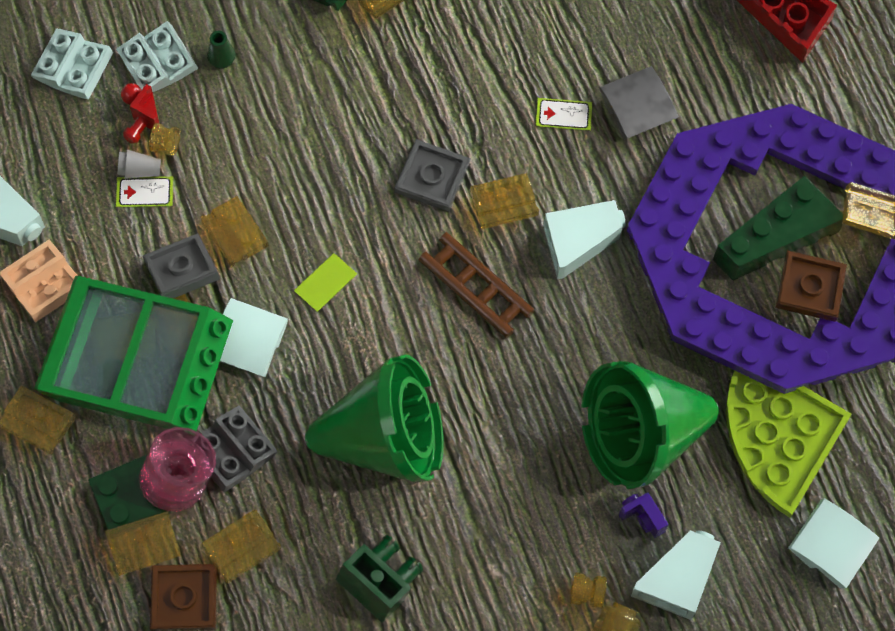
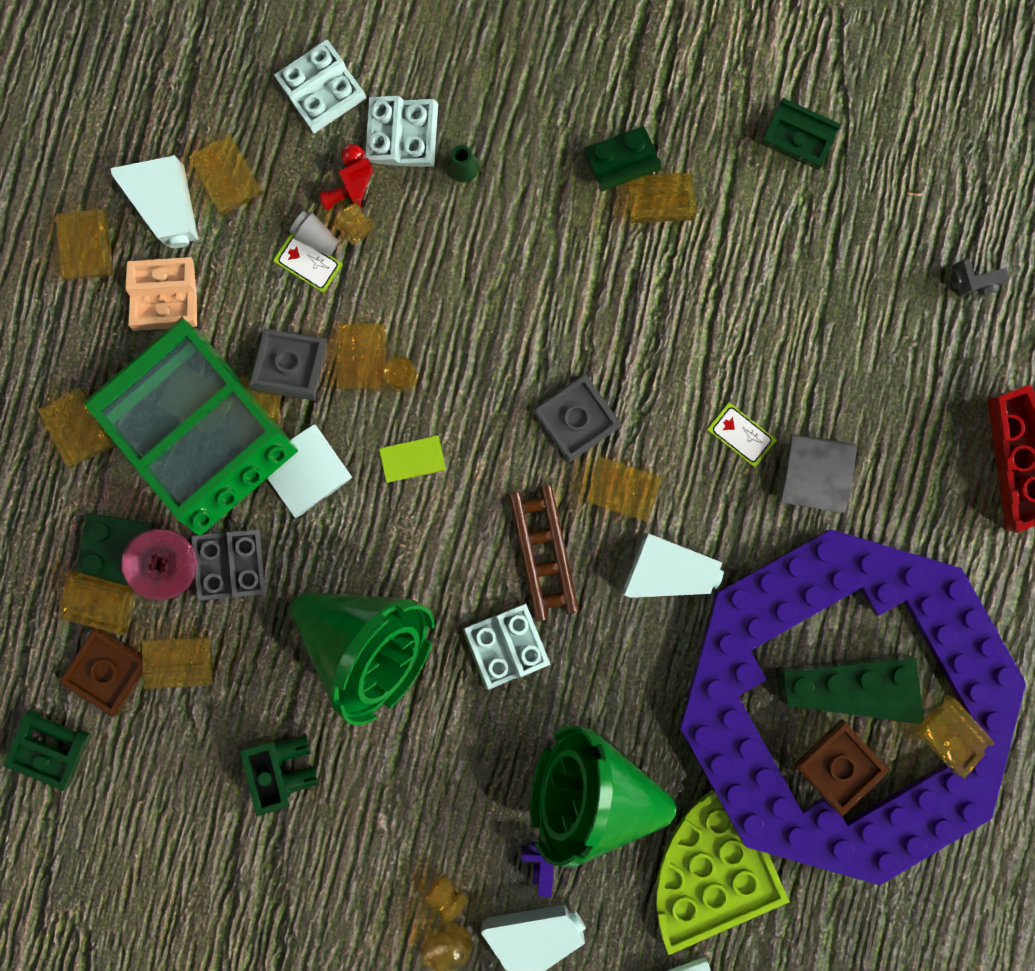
camera: 35 degrees right, 20 degrees up
(39, 164) = (226, 174): none -> clear yellow plate
(272, 216) = (399, 369): none -> clear yellow wheel
(497, 370) = (506, 646): none -> light aqua slope

